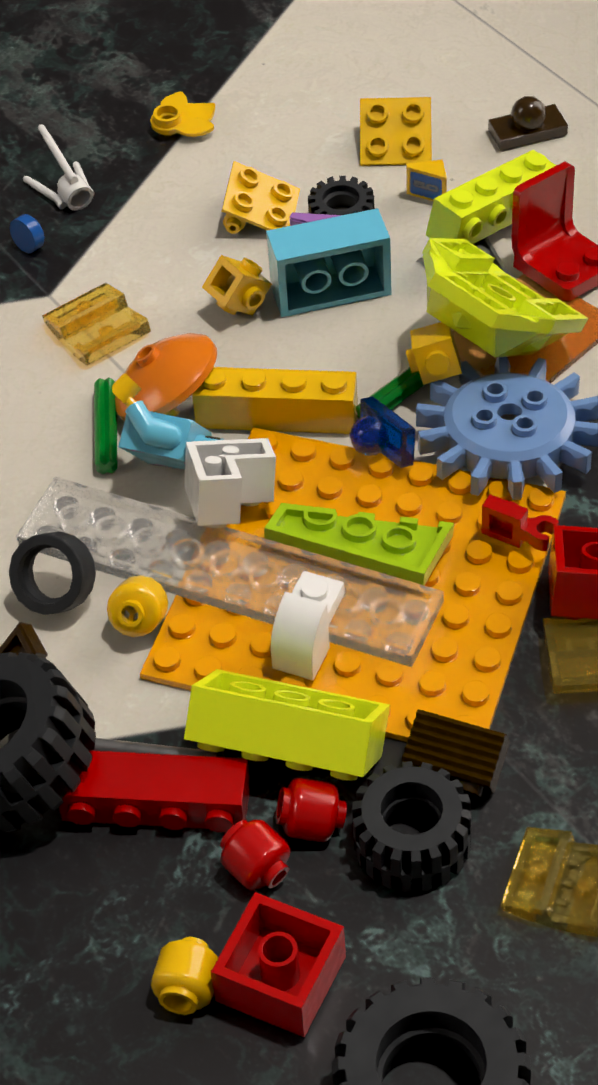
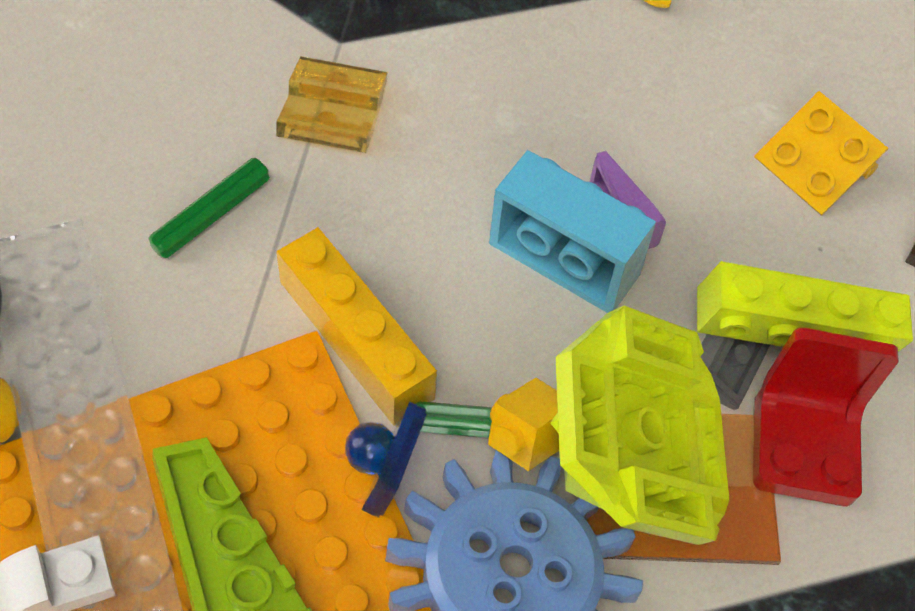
camera: 40 degrees right, 10 degrees up
(152, 435) = (197, 271): medium azure torso -> none
(170, 371) = (291, 209): orange dish -> none
(228, 475) = (178, 356): white brick -> none
(237, 285) = (468, 176): yellow brick -> none
(257, 200) = (609, 110): yellow hinge -> none
(340, 194) = (682, 167): black tyre -> none
(426, 179) = (784, 230): slope -> none

